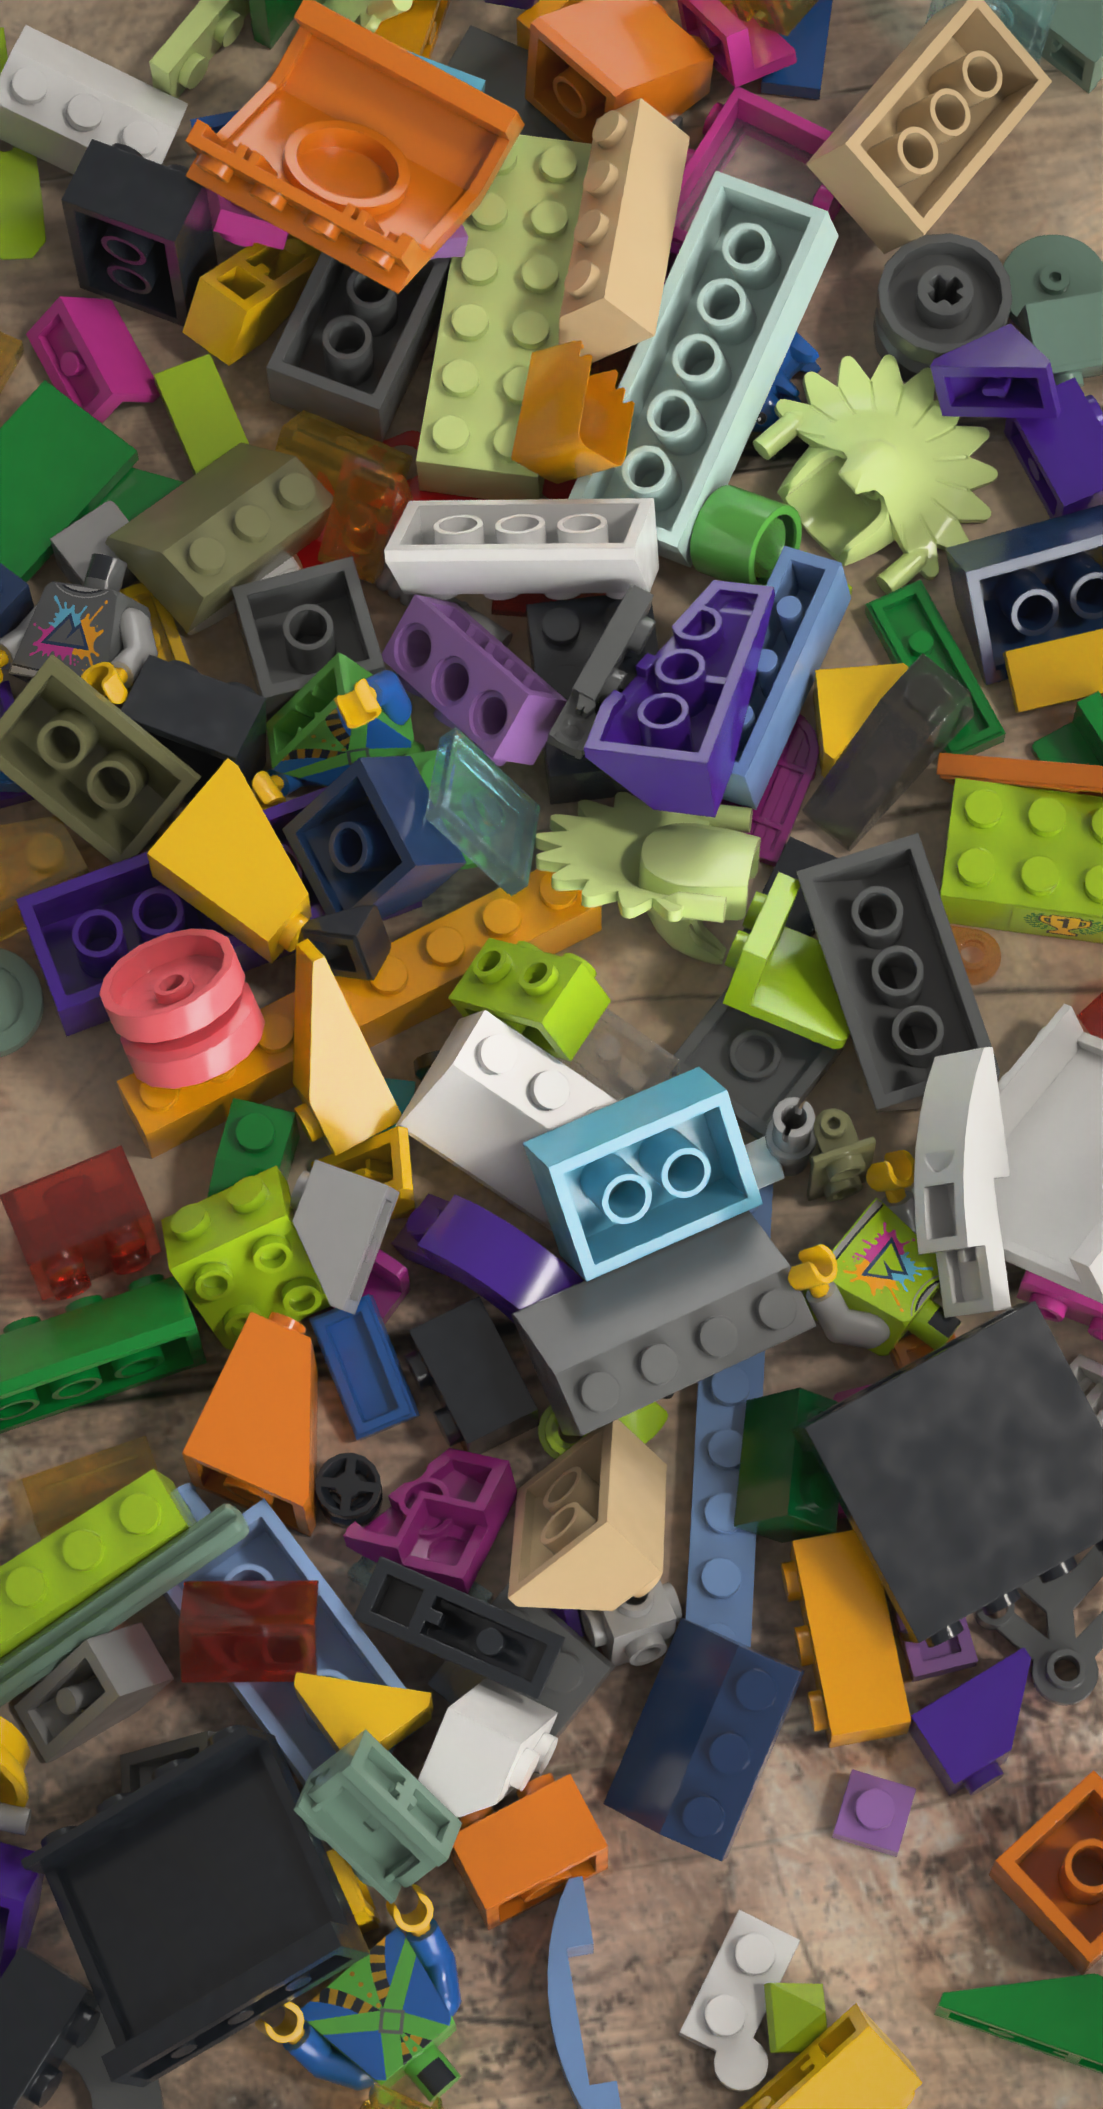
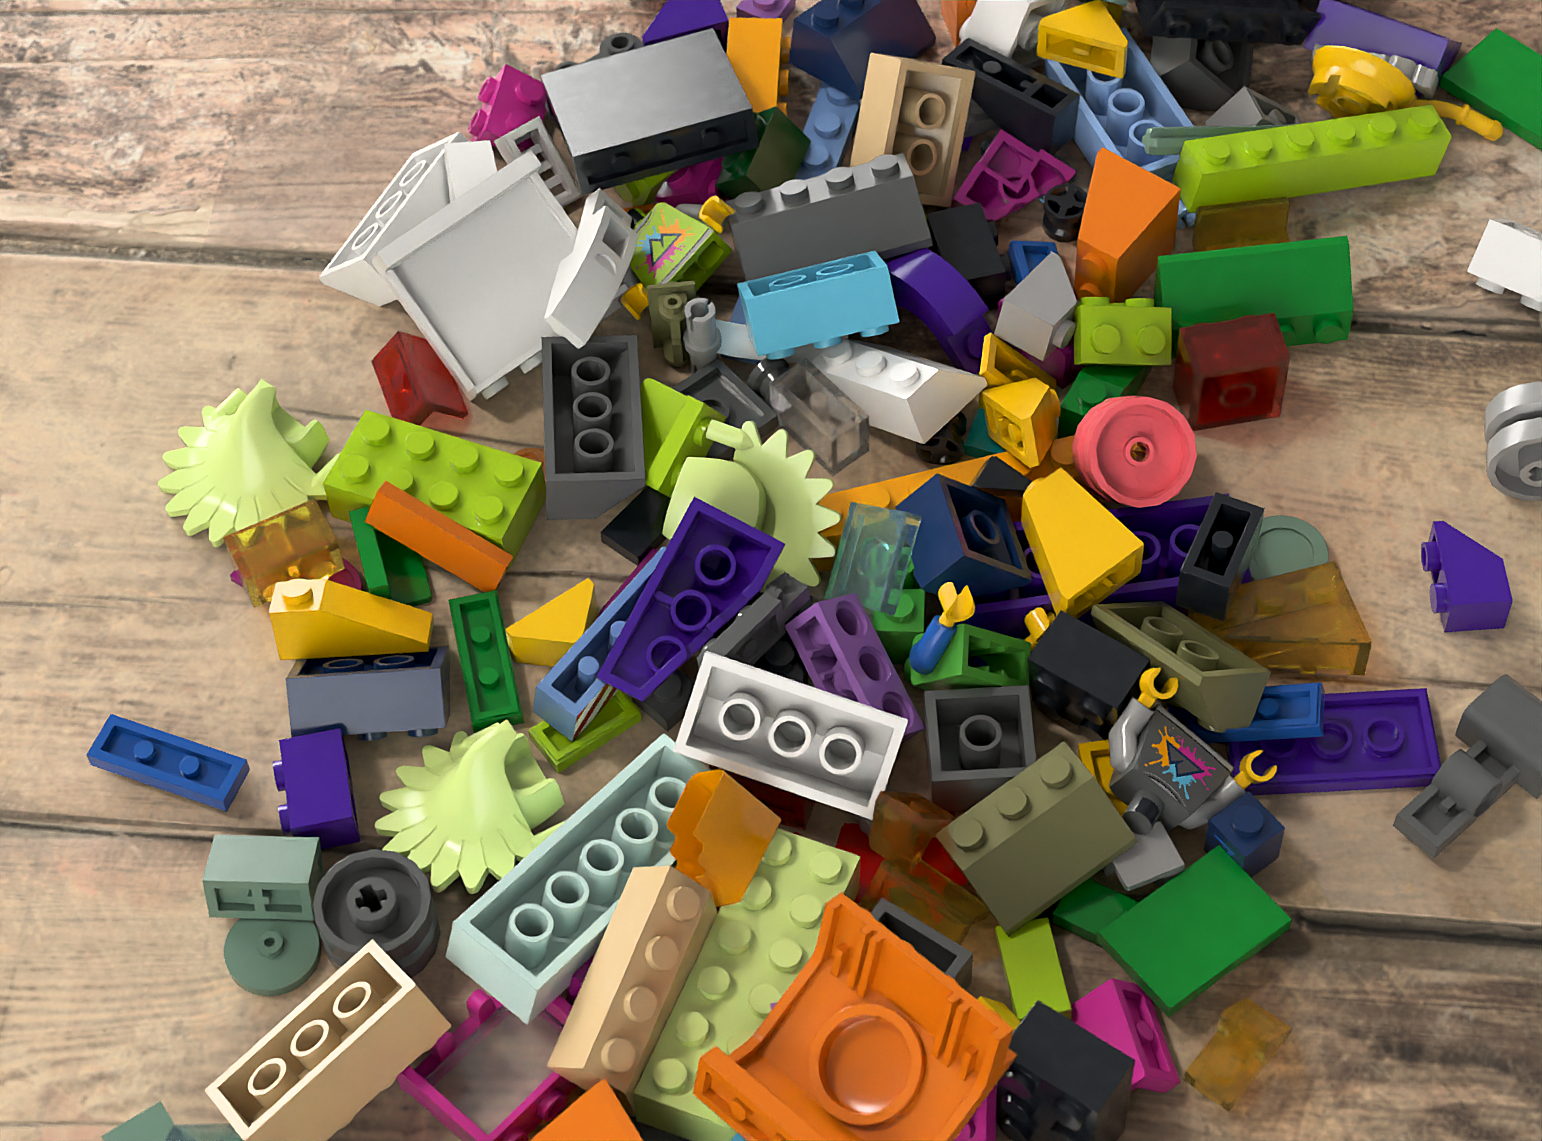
camera: 165 degrees left, 15 degrees down
(52, 865) = (1219, 556): none -> black brick
(248, 1630) = (1148, 101): clear red panel -> none
(535, 993) = (869, 425): lime brick -> none
(742, 535) = (600, 753): bright green piece -> none
(890, 751) = (529, 581): clear smoke slope -> none
(996, 378) = (351, 824): dark purple slope -> none

